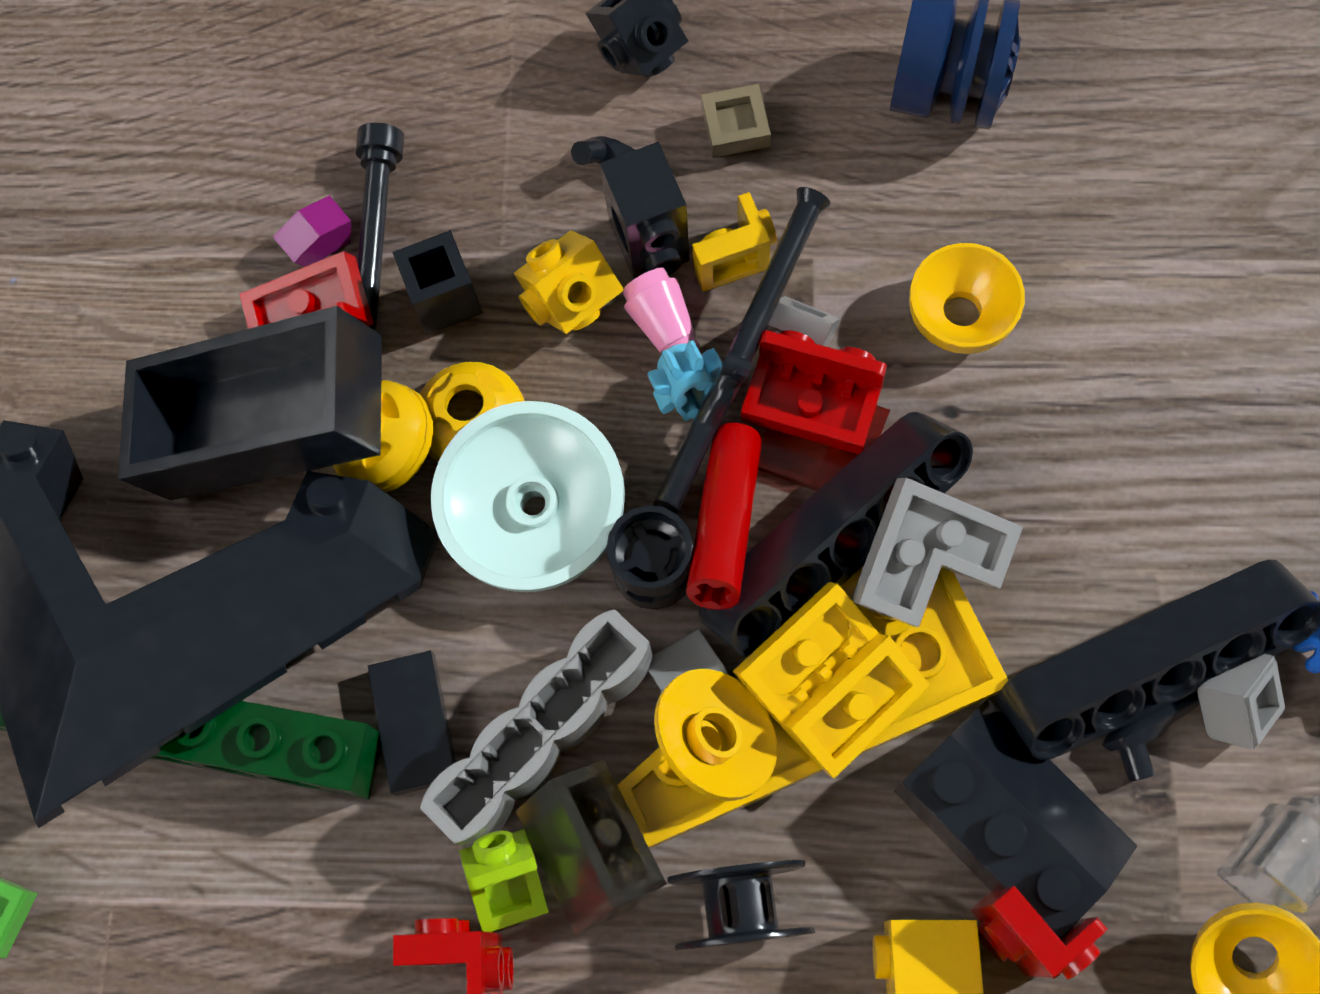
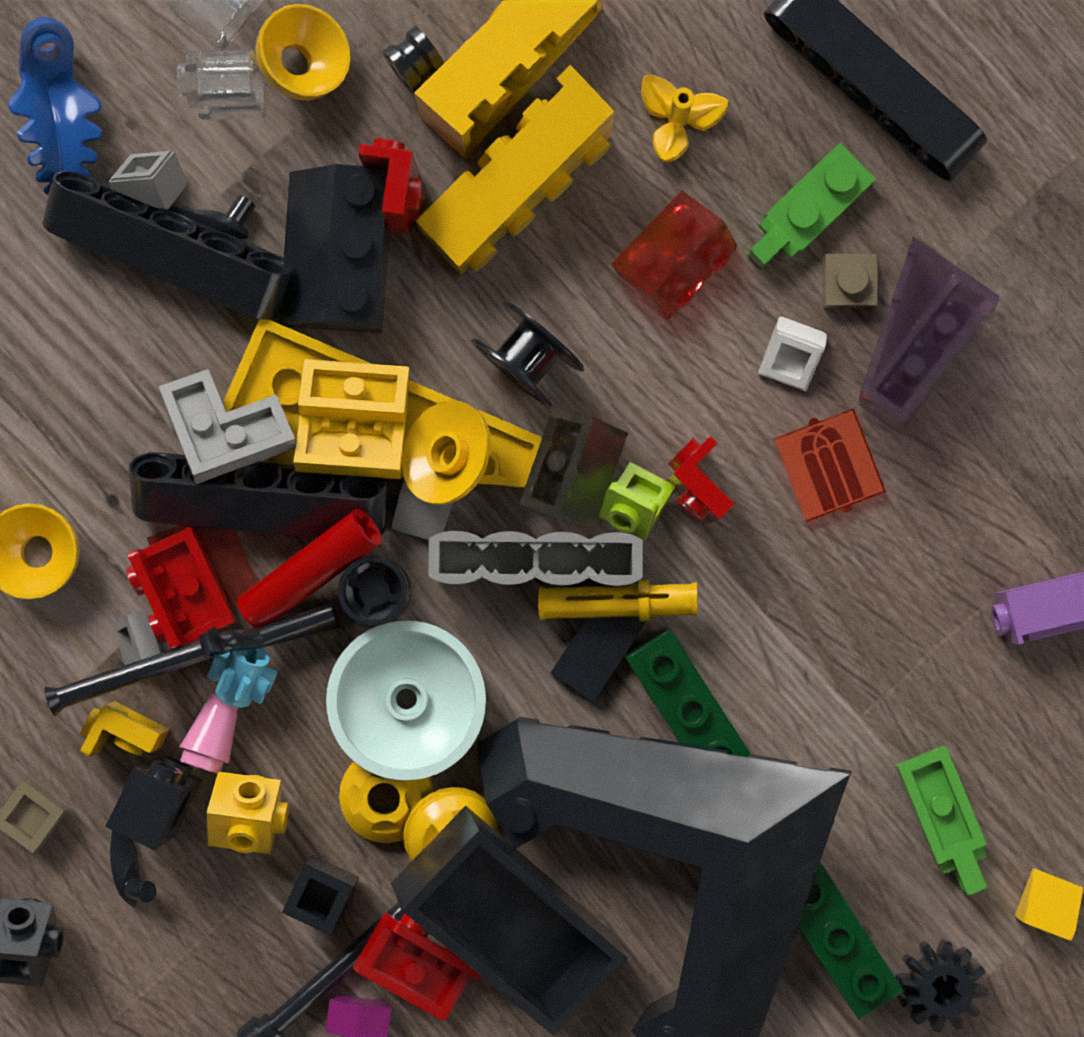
camera: 140 degrees left, 15 degrees up
(368, 830) = (618, 601): none -> yellow pin

